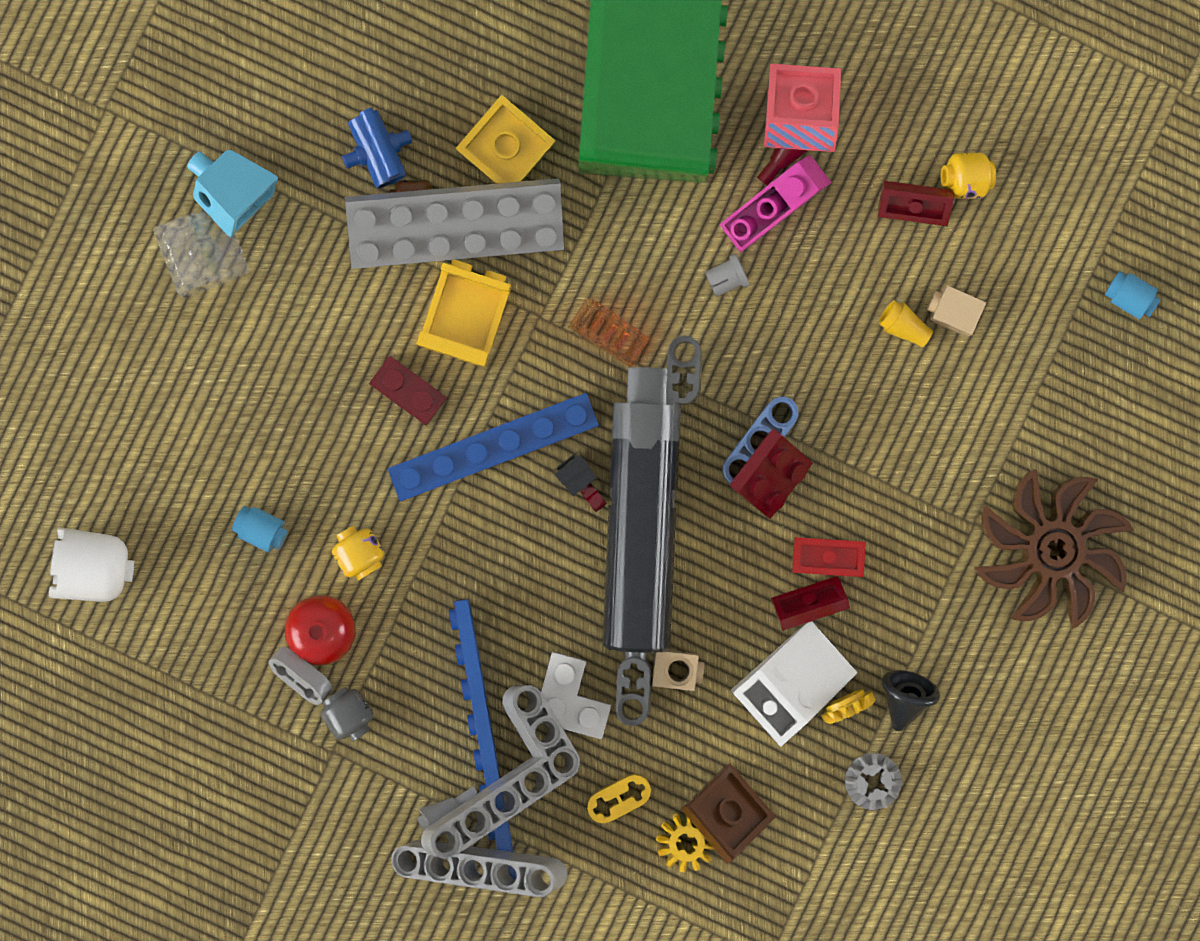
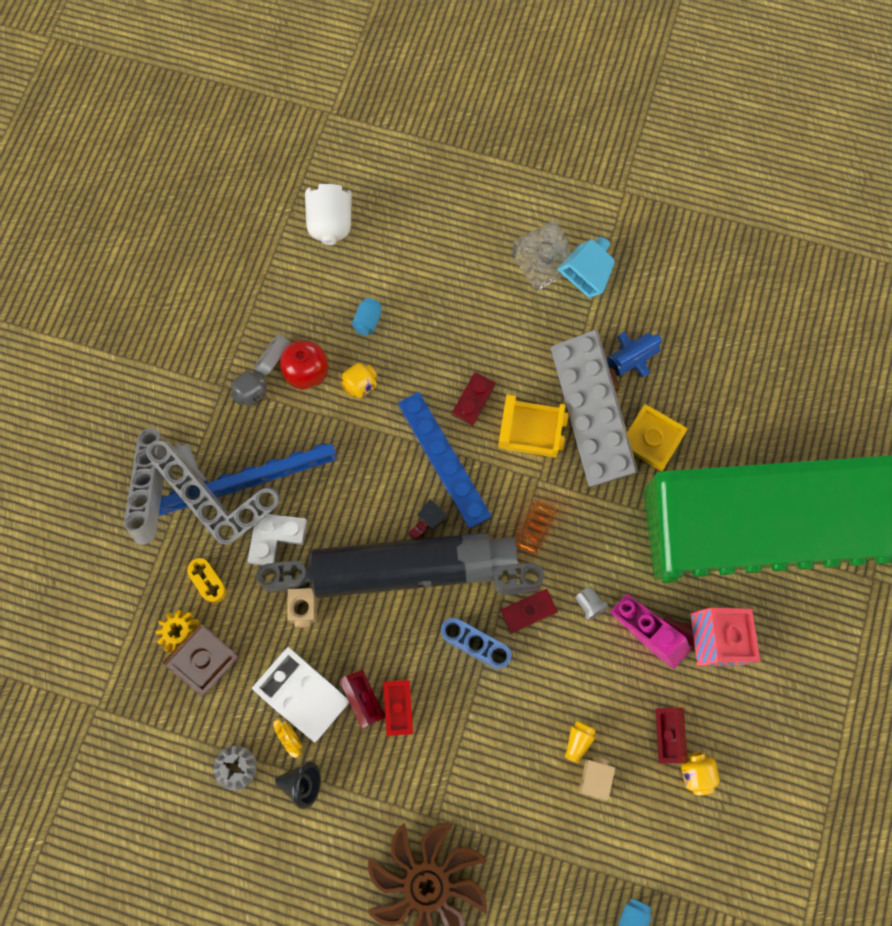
camera: 80 degrees right, 15 degrees down
(724, 362) = (528, 611): none -> dark red plate
(771, 474) = (452, 653): dark red plate -> none

